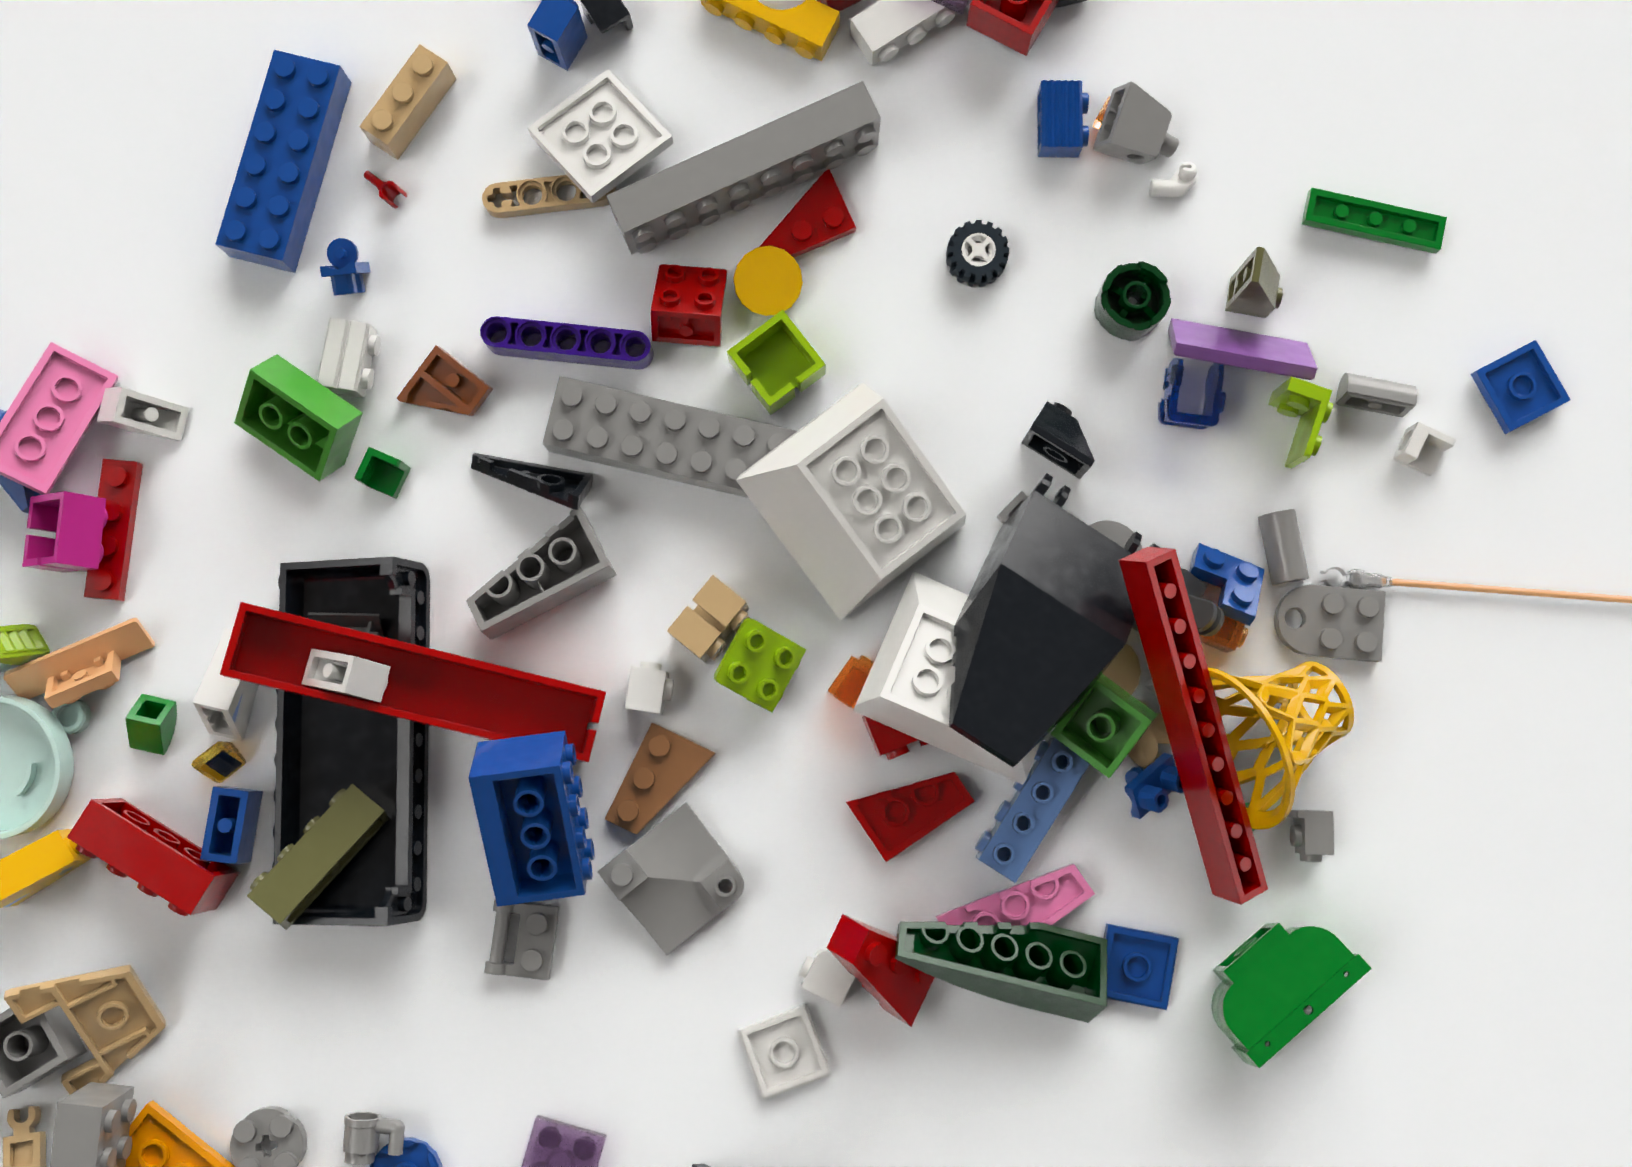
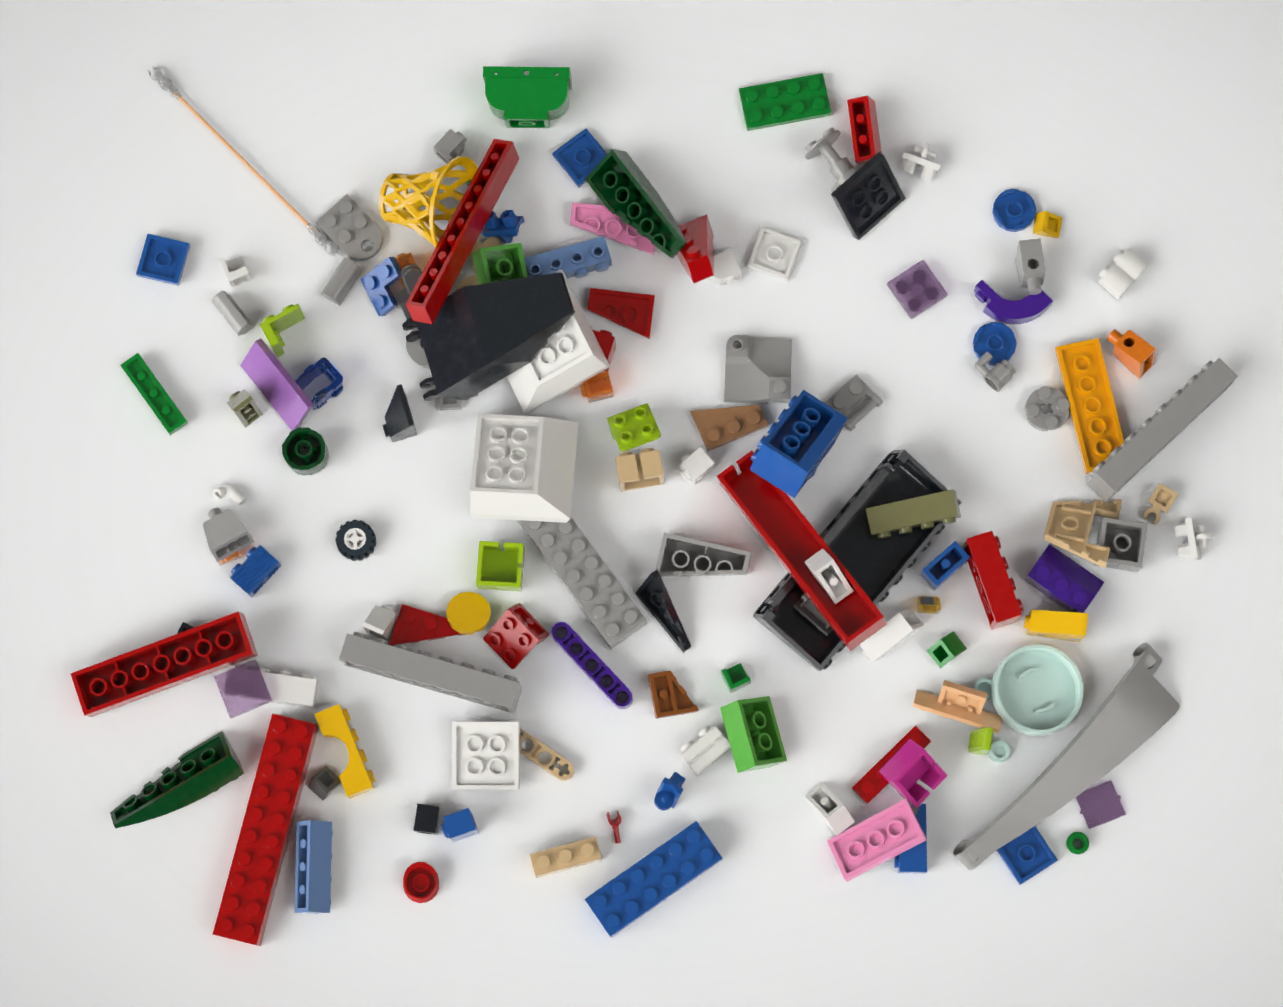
camera: 135 degrees left, 5 degrees down
(68, 936) = (1064, 580): none -> dark purple slope
(859, 178) = (380, 621): none -> white slope

